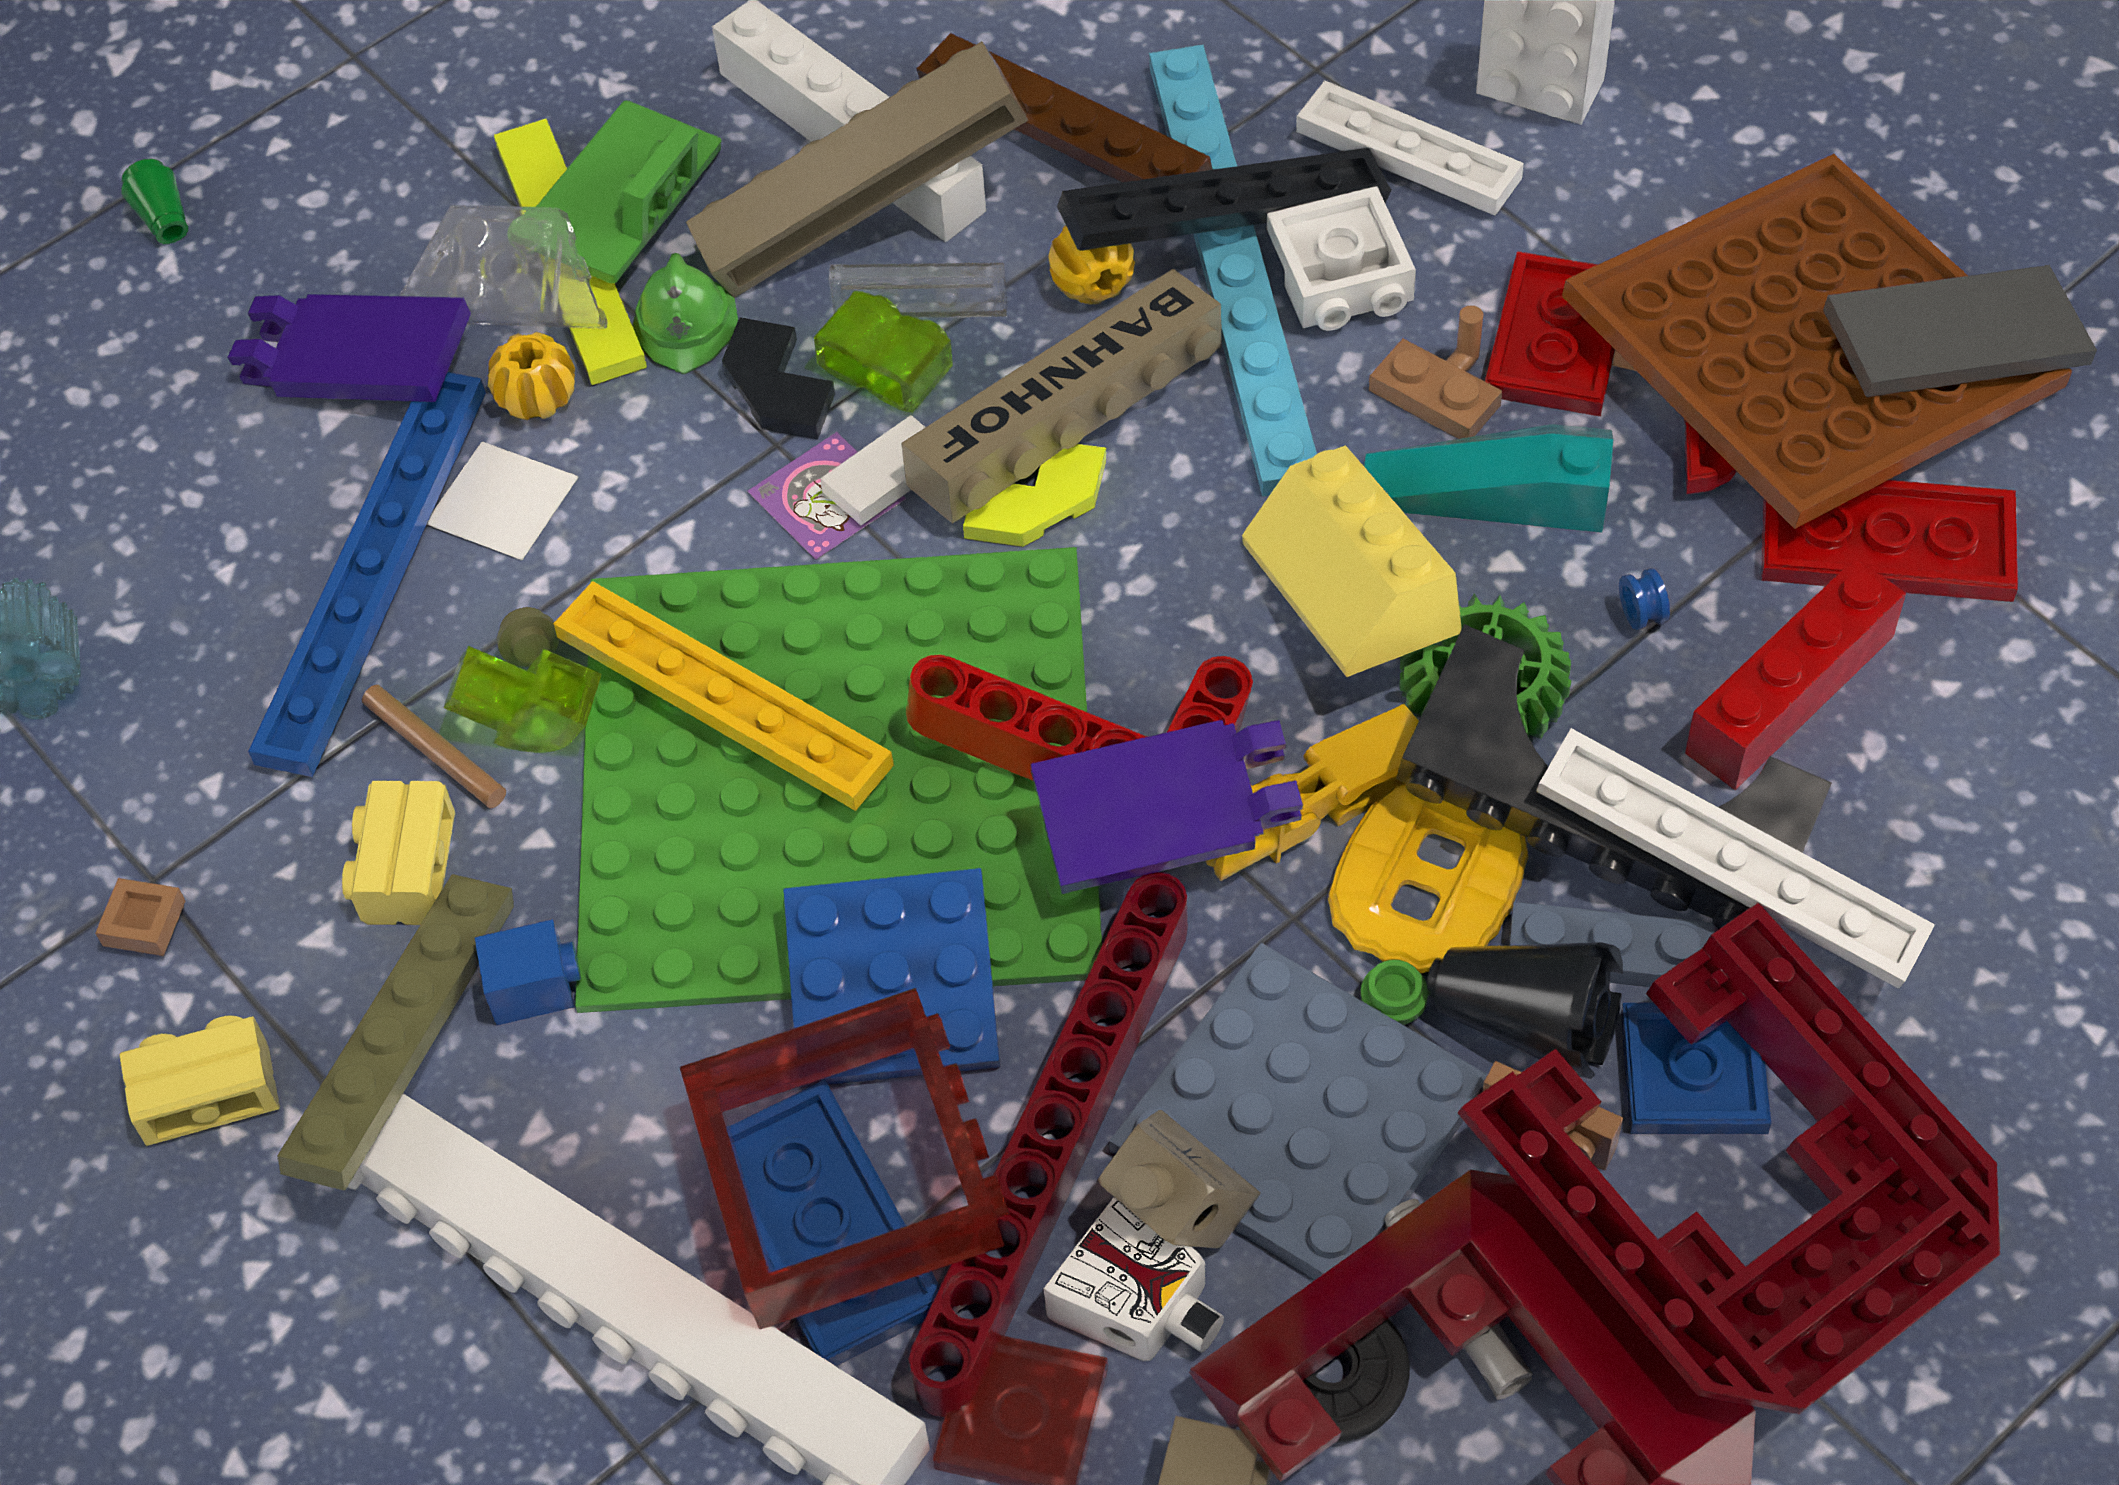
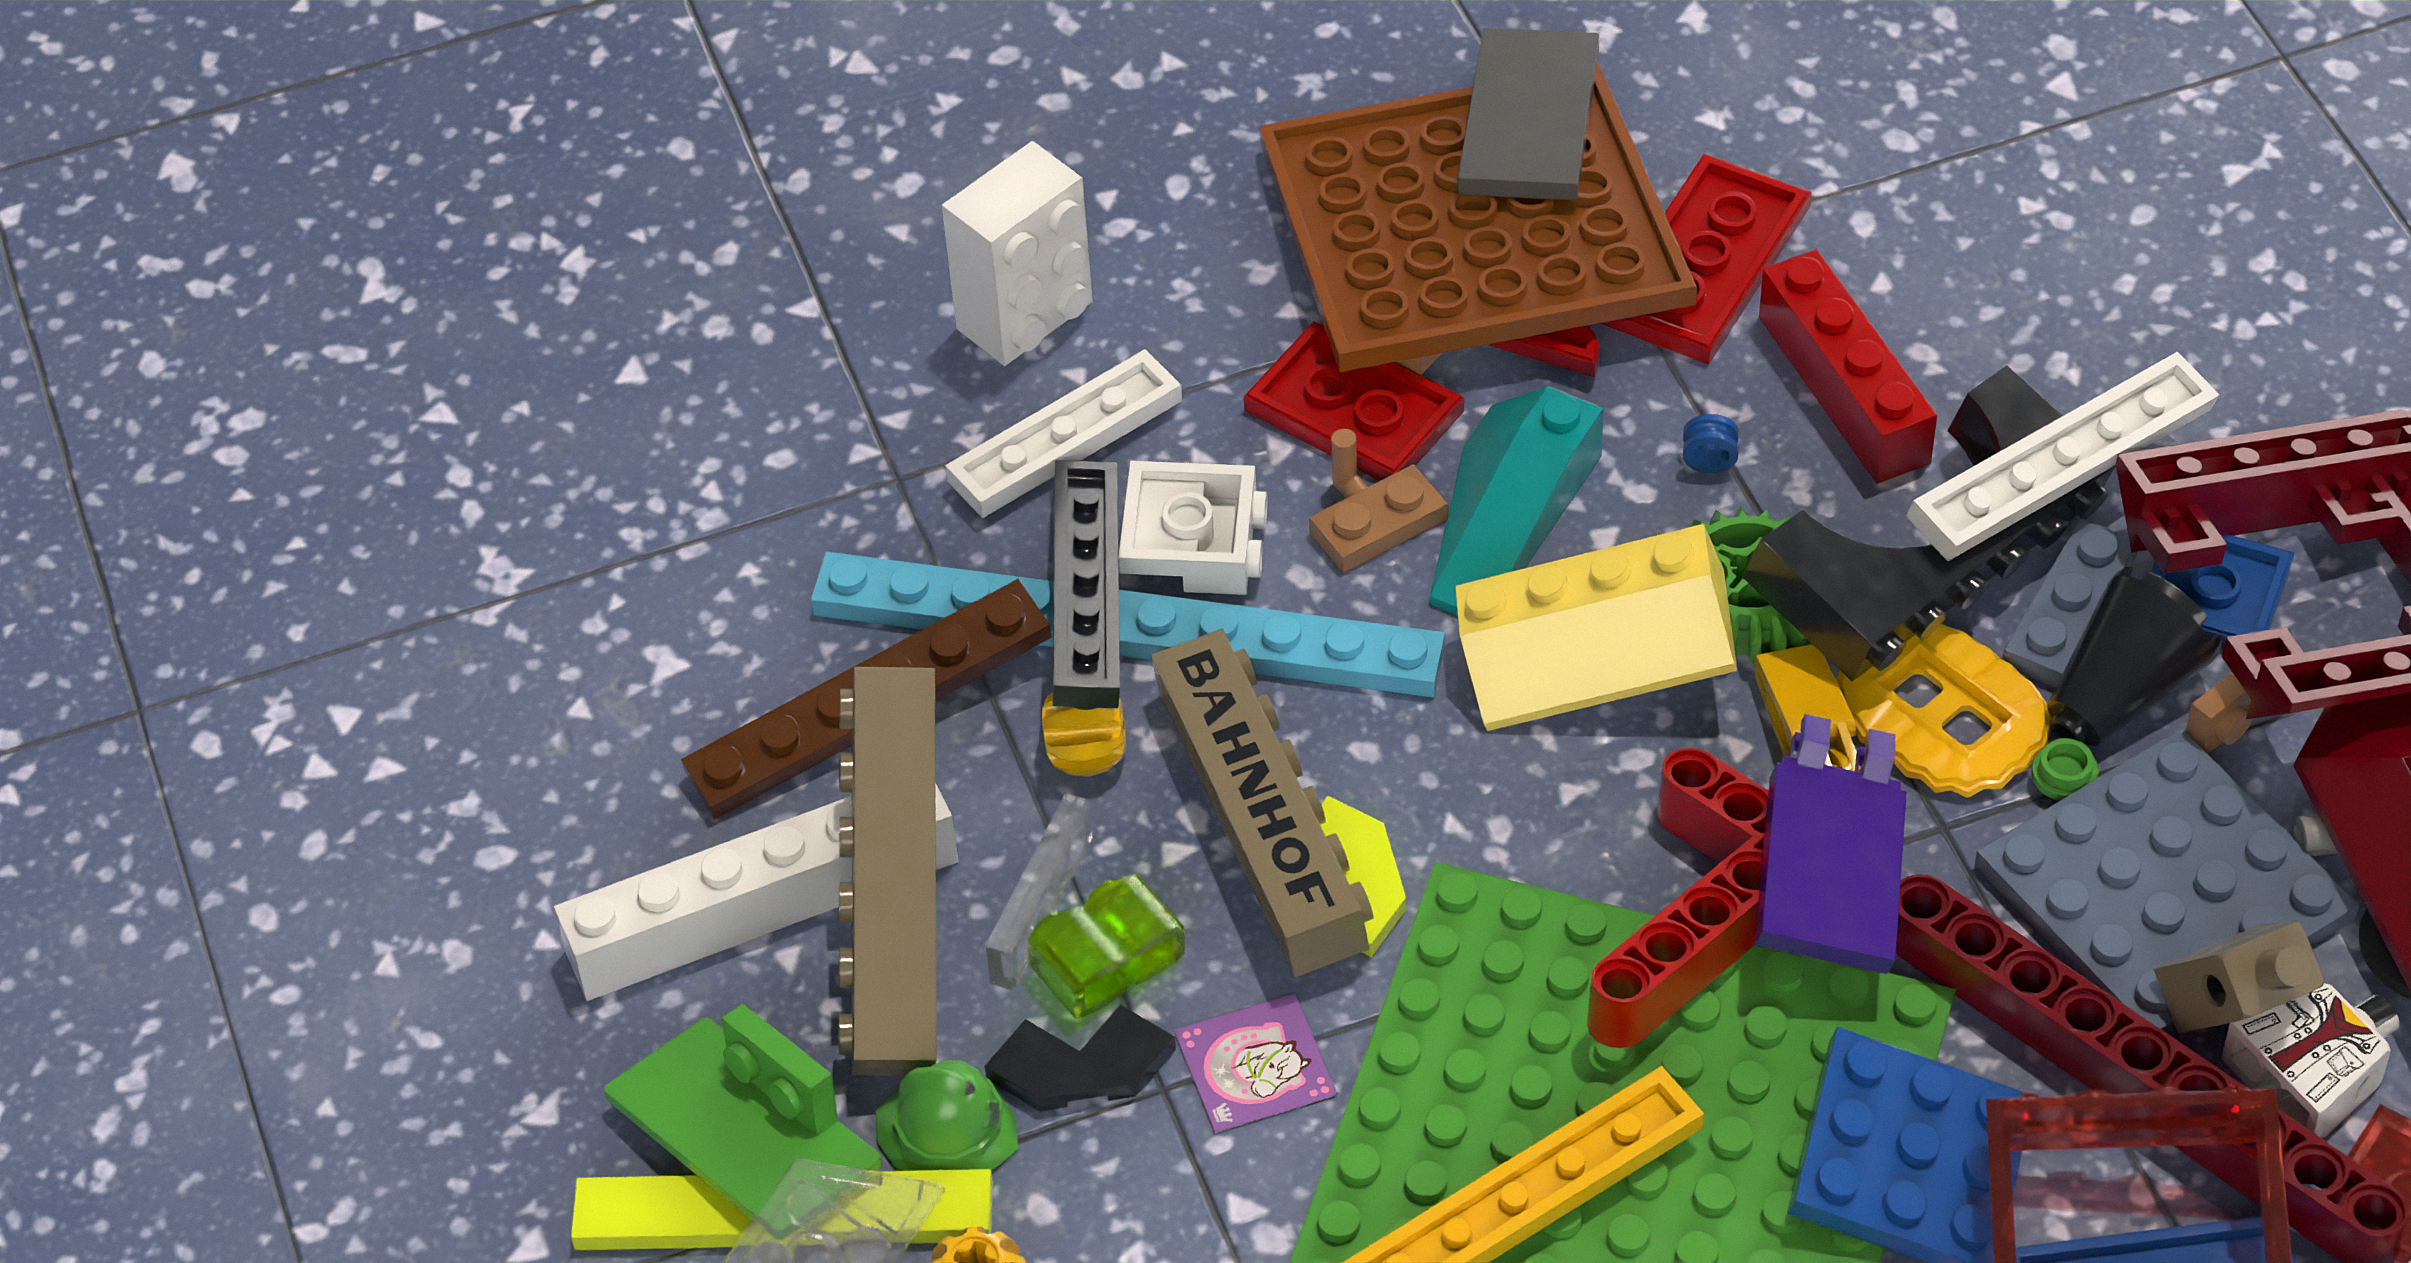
camera: 70 degrees left, 5 degrees down
(873, 475) = (1259, 993): white tile -> none

